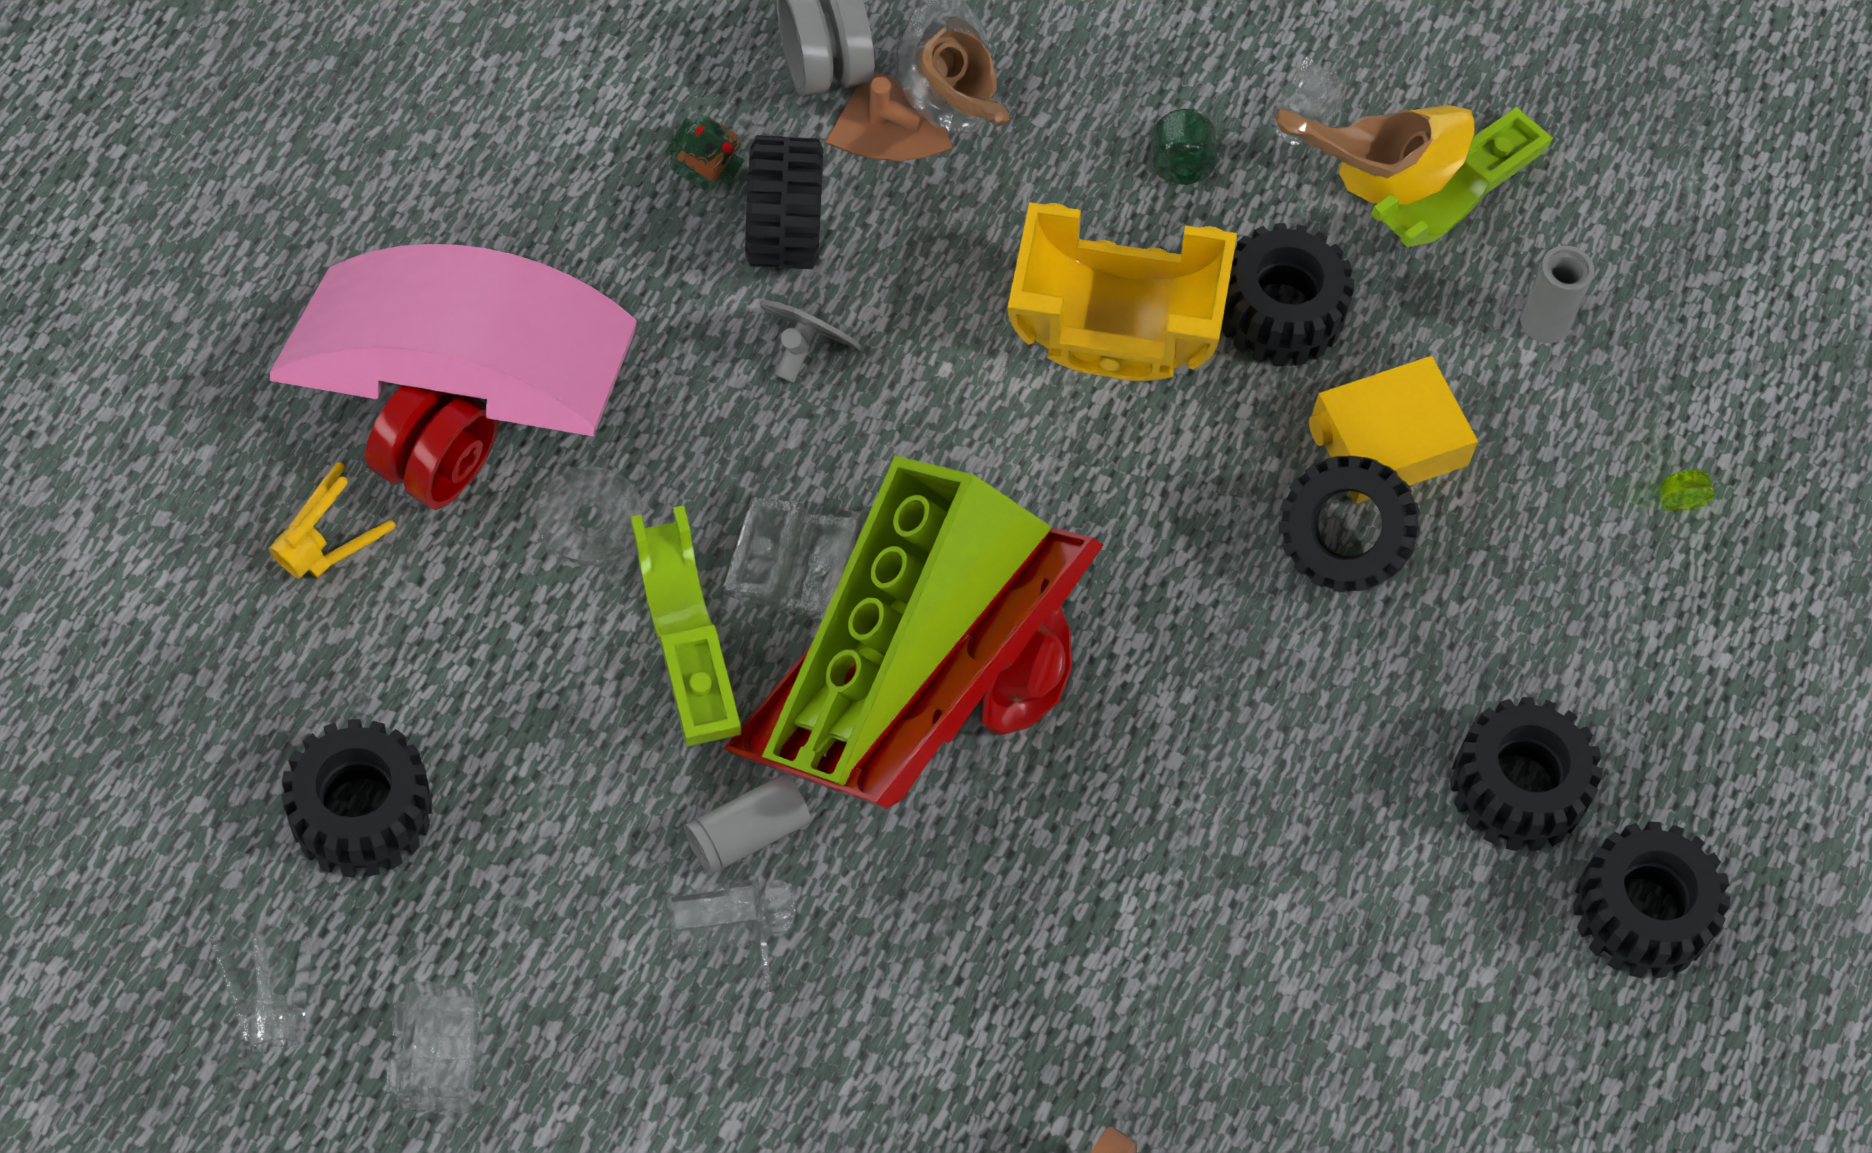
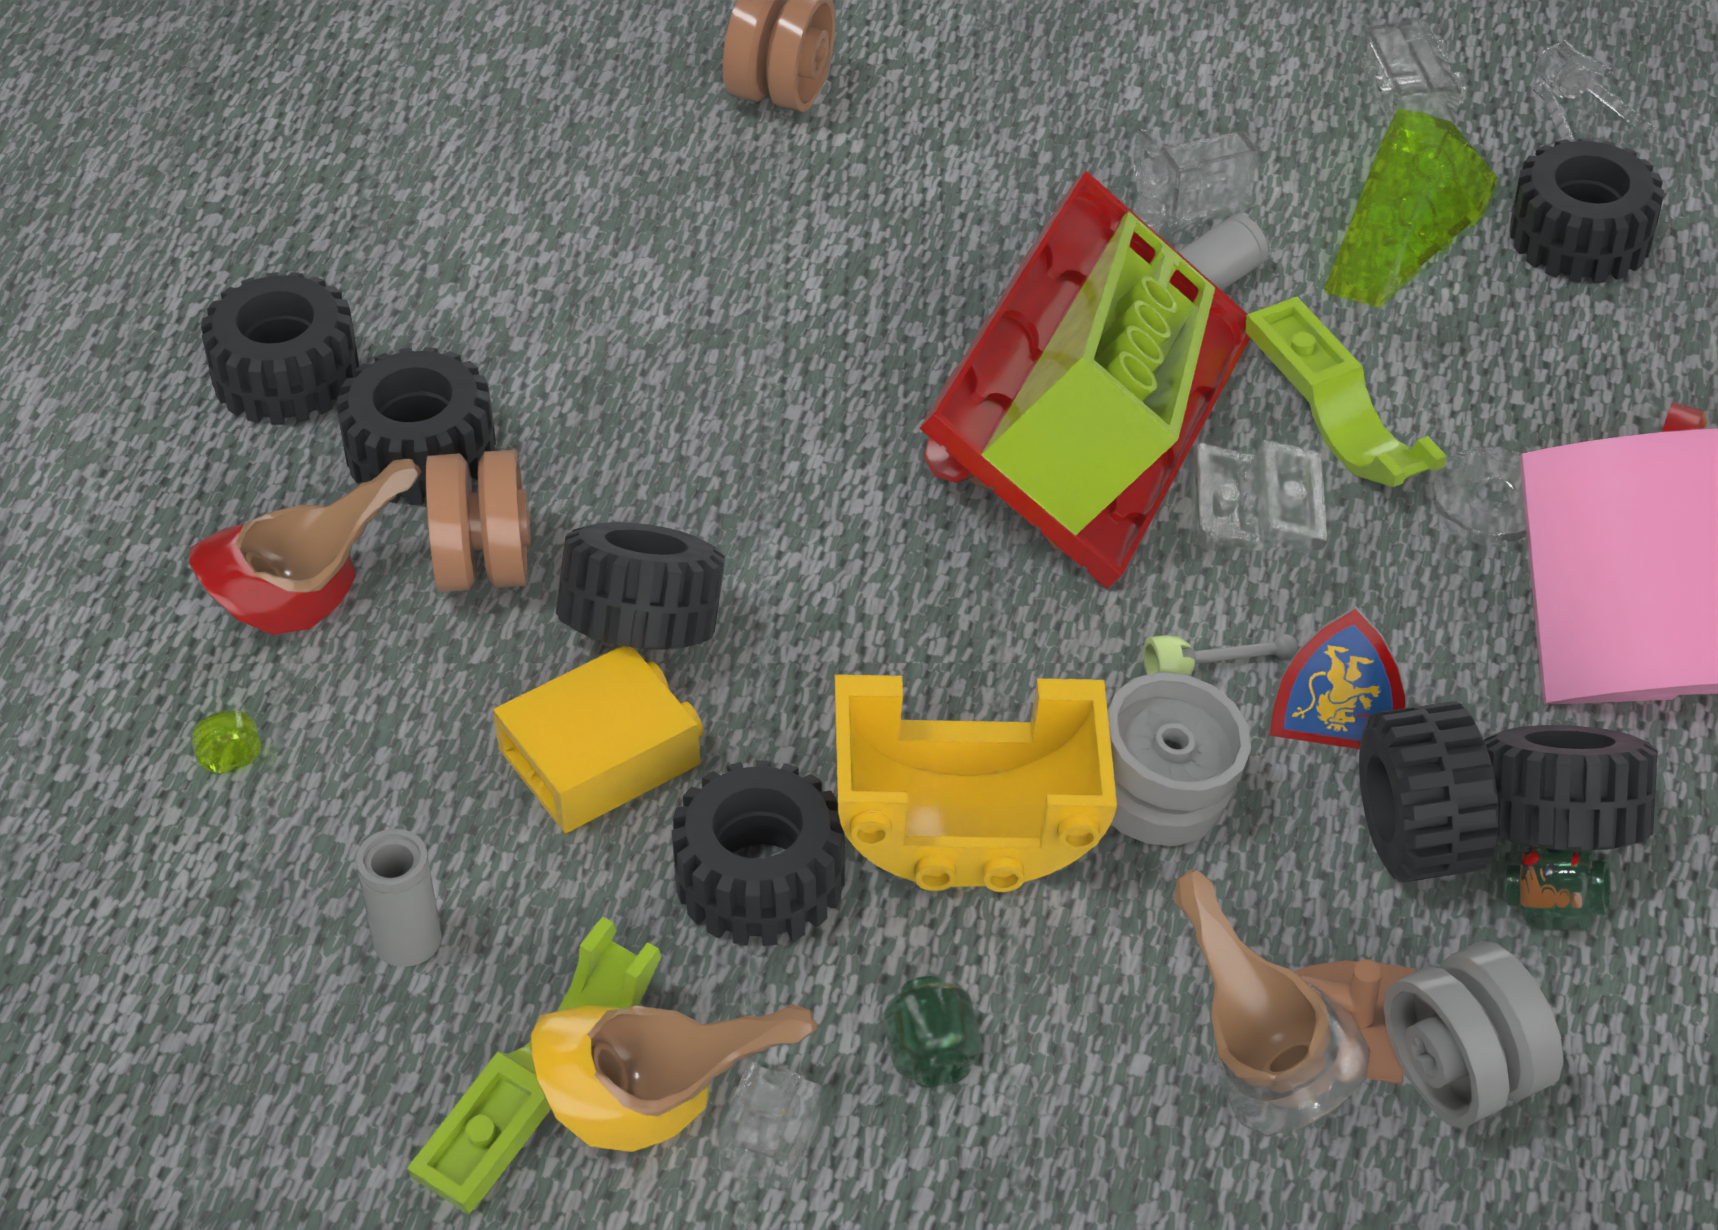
camera: 175 degrees right, 15 degrees down
(513, 871) = (1413, 204): none -> clear neon green wedge
(635, 193) = (1573, 787): none -> black tyre
(918, 410) = (1176, 655): none -> hinge
(960, 291) = (1174, 757): none -> light grey wheel
(1481, 625) = (483, 520): none -> nougat wheel
(1681, 622) = (294, 561): none -> hat

